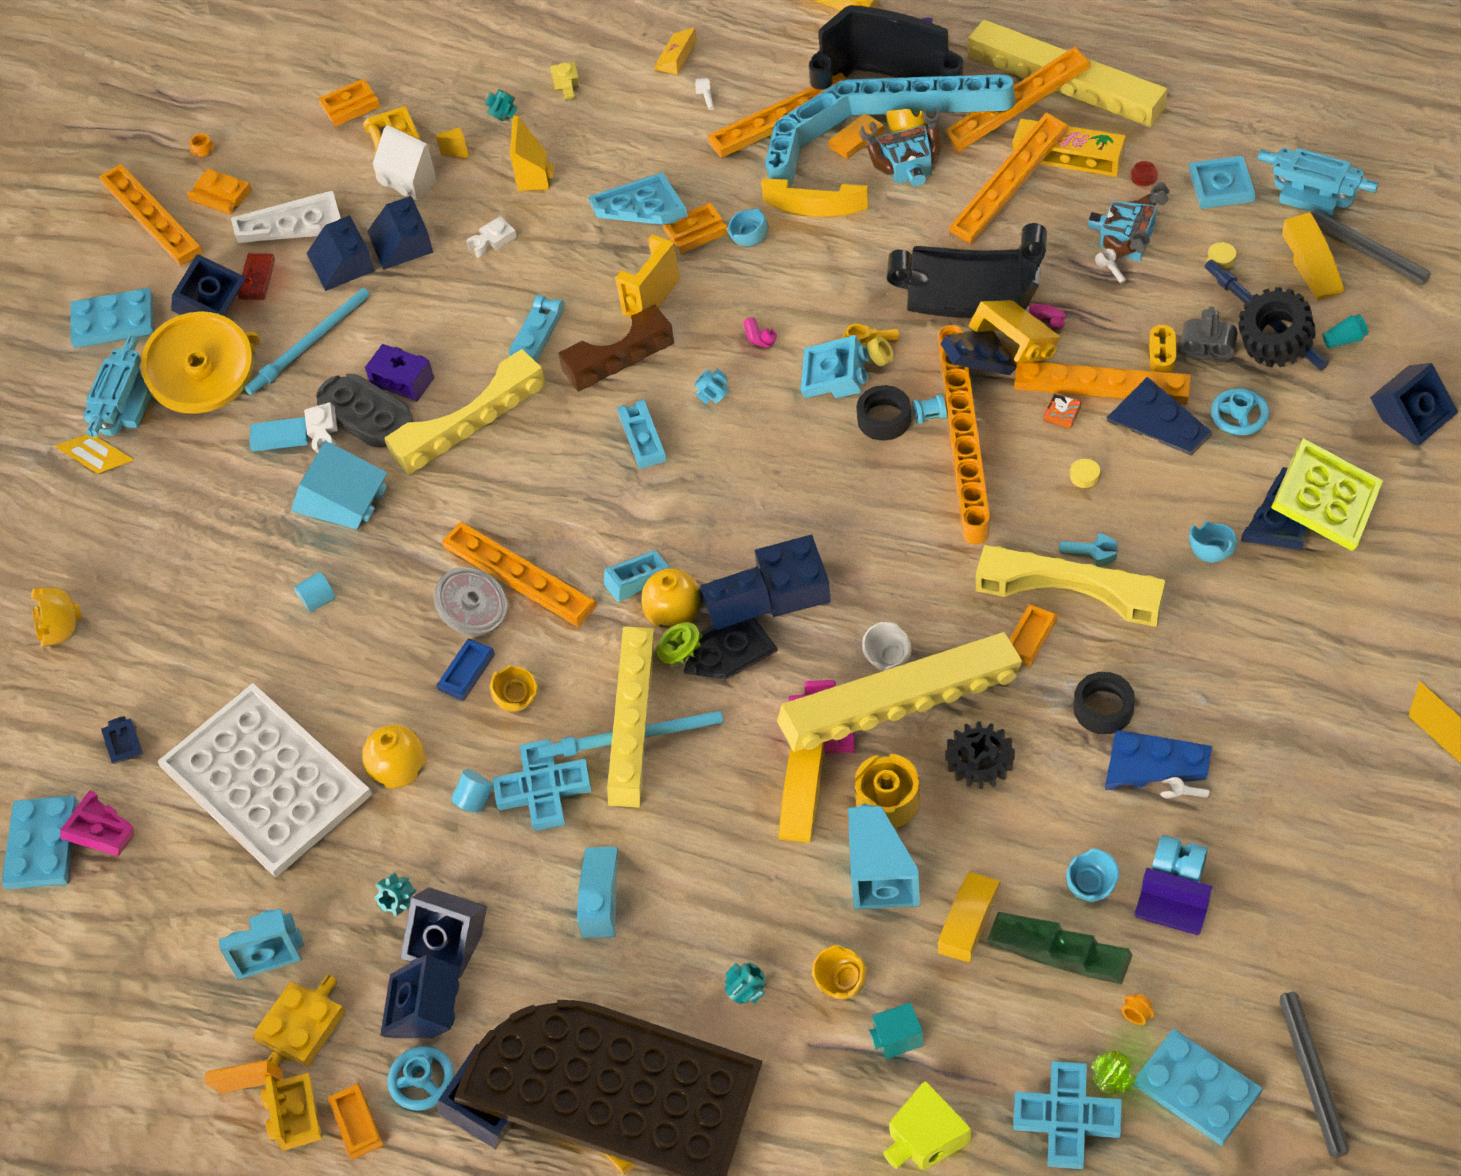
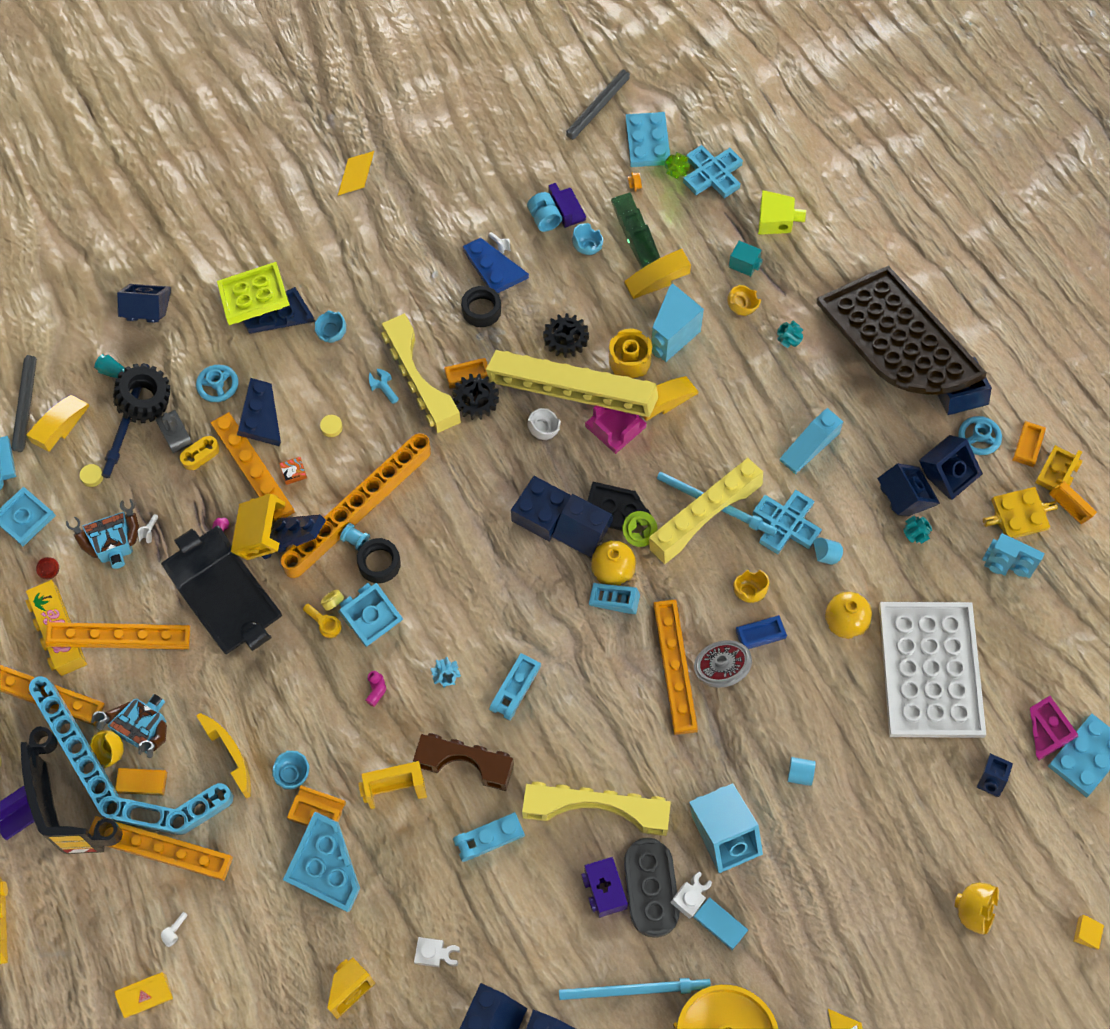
camera: 140 degrees left, 10 degrees up
(986, 611) = (467, 390): none -> black gear

